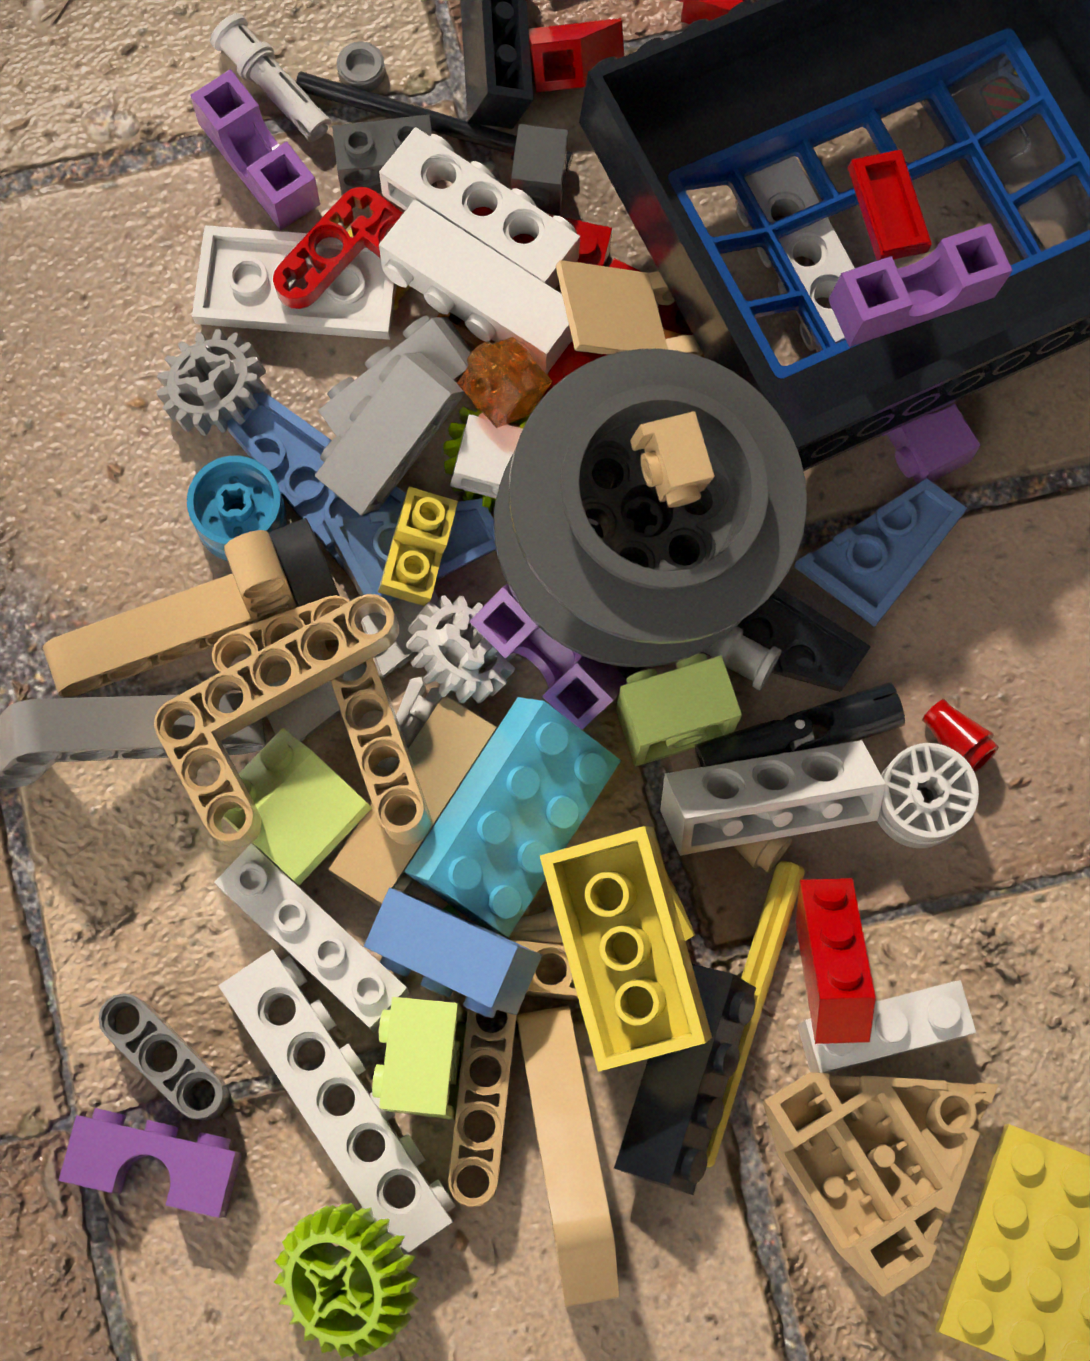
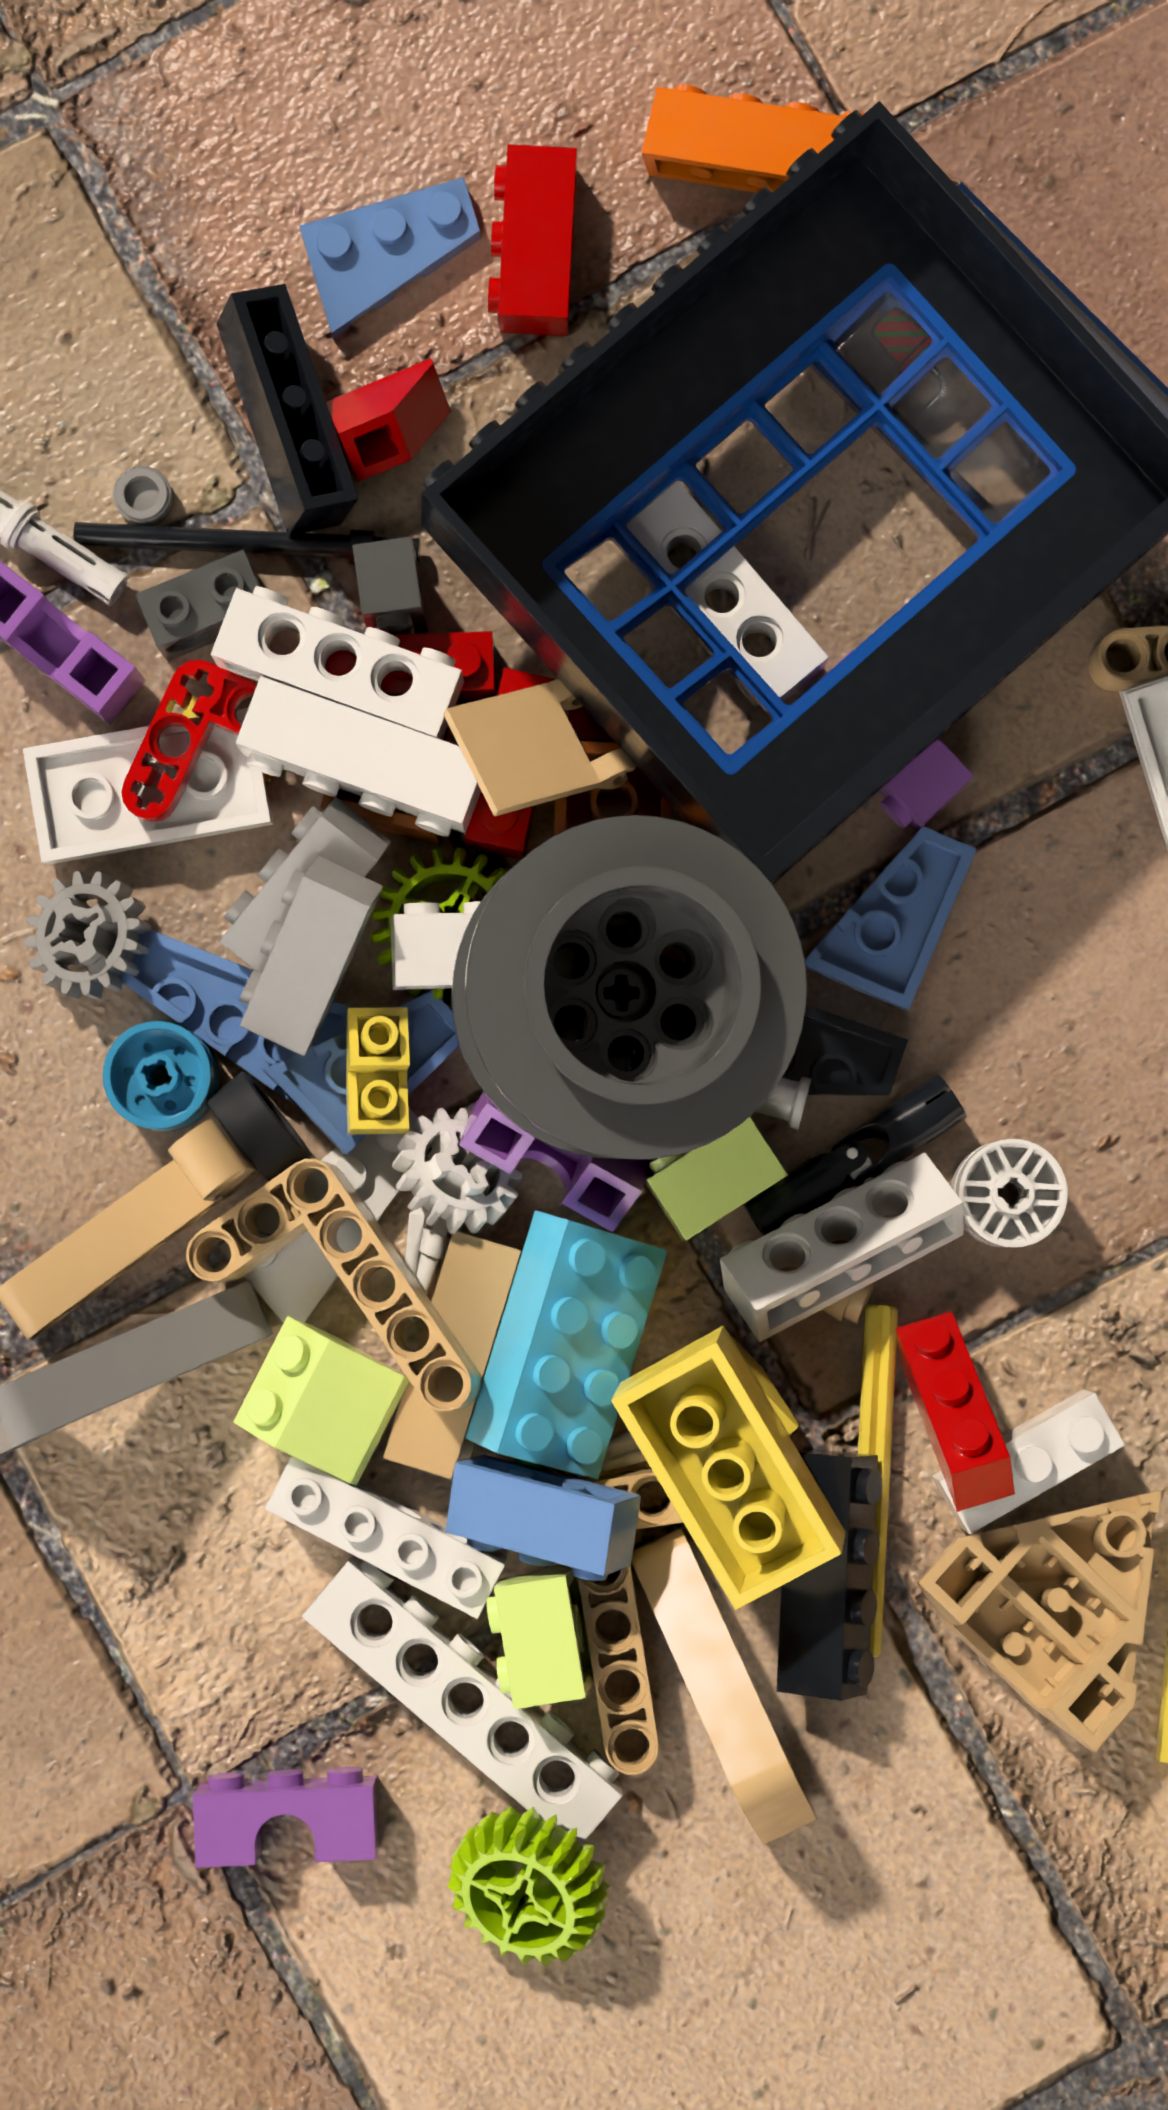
camera: 10 degrees left, 10 degrees up
(142, 1043) = (235, 1705): light grey beam -> none
(259, 701) = (255, 1305): tan beam -> none
(503, 381) = (422, 866): clear orange brick -> none
(674, 458) = (647, 963): tan brick -> none
(889, 205) = (806, 561): red tile -> none
(889, 298) = (866, 659): medium lavender arch -> none
(961, 734) = (1031, 1112): red cone -> none

